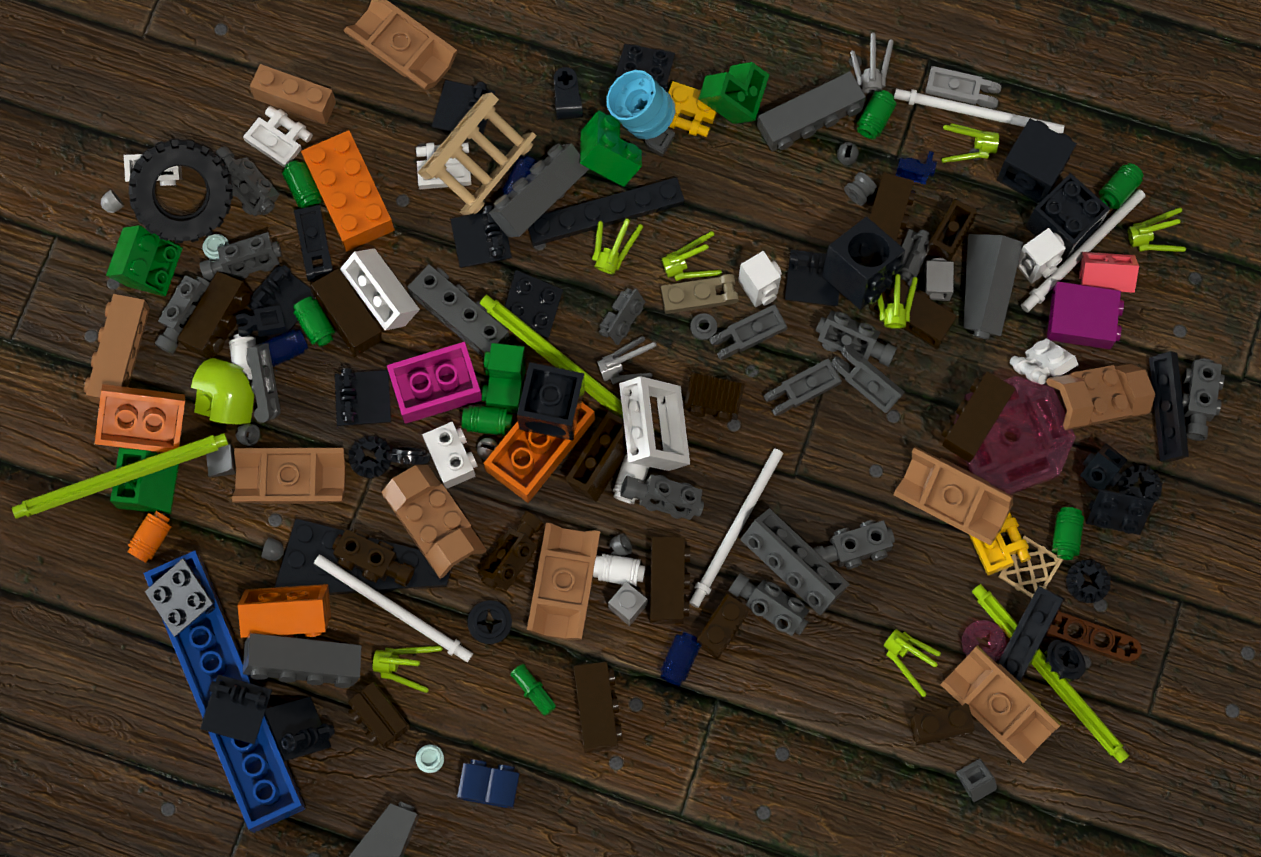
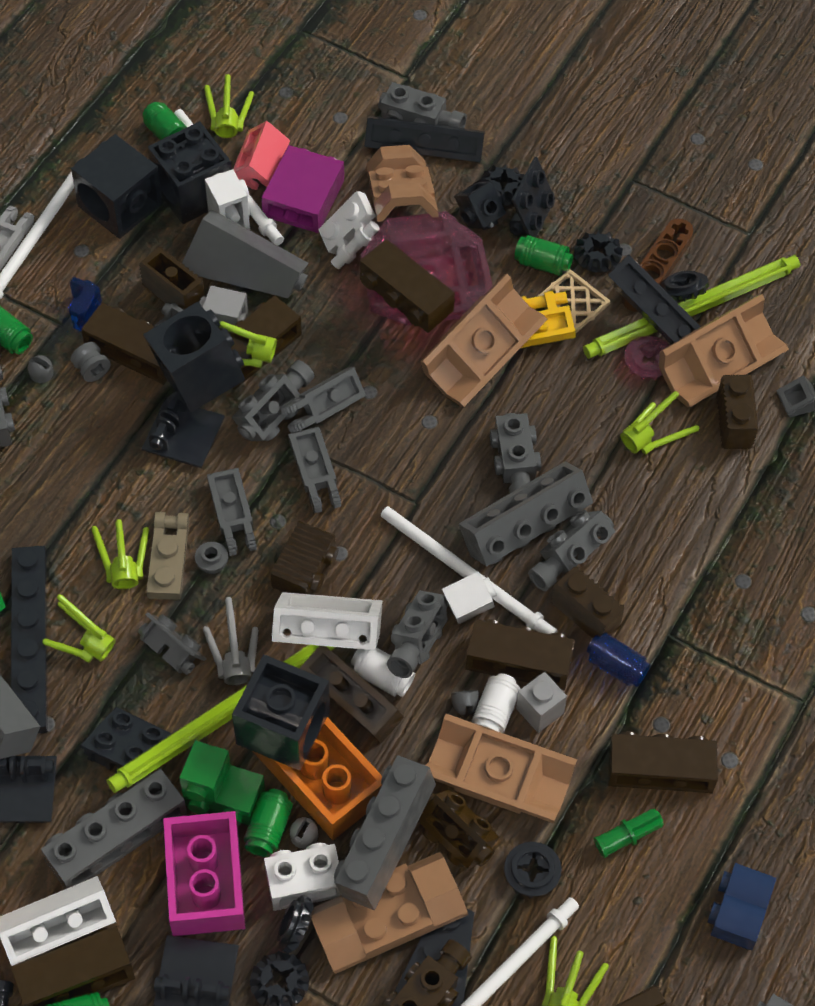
camera: 80 degrees left, 15 degrees down
(429, 758) = (697, 974): light aqua plate -> none
(482, 501) = (385, 832): none -> dark grey brick
(707, 530) = (470, 597): none -> white brick
(760, 279) = (175, 477): white brick -> none
(985, 141) = (72, 235): lime plant -> none

